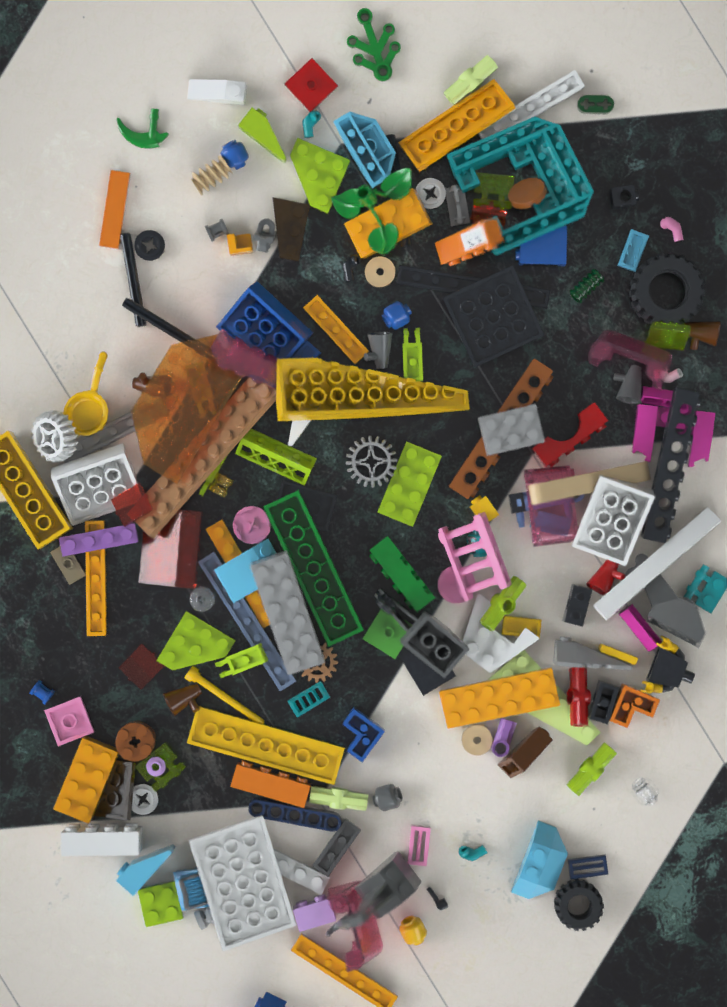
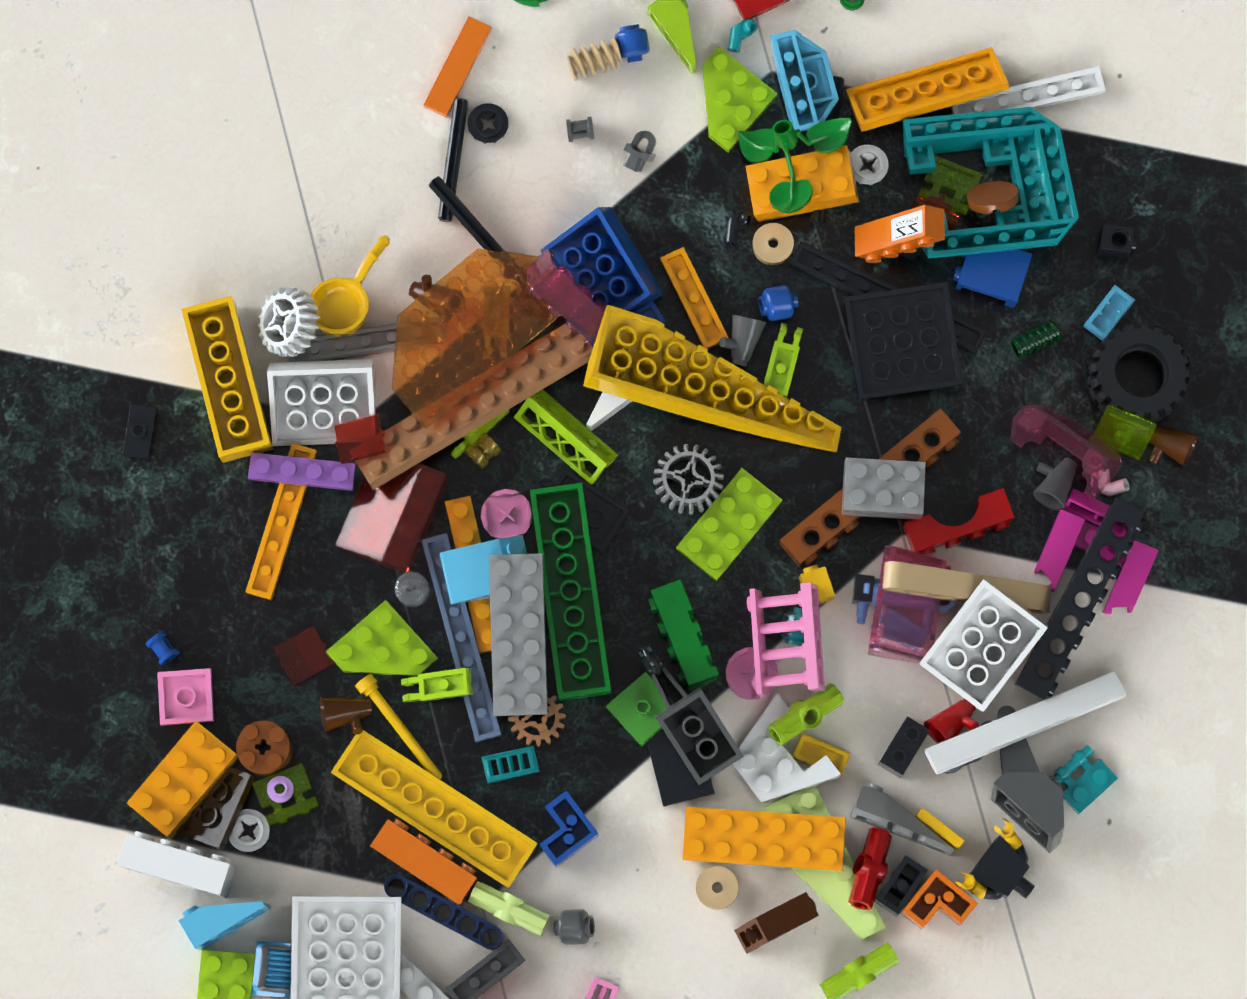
camera: 20 degrees right, 10 degrees down
(68, 565) = (251, 495): dark tan plate -> none
(239, 244) = (603, 156): light orange panel -> none
(290, 227) = (675, 154): dark brown wing -> none
(457, 206) = (897, 189): light grey hinge -> none
(470, 80) = (961, 40): yellowish green piece -> none
(504, 735) = (755, 892): medium lavender piece -> none
(595, 99) = (1114, 112): dark green beam -> none
(640, 627) = (978, 803): dark pink piece -> none
(674, 226) = (1171, 298): bright pink arm -> none

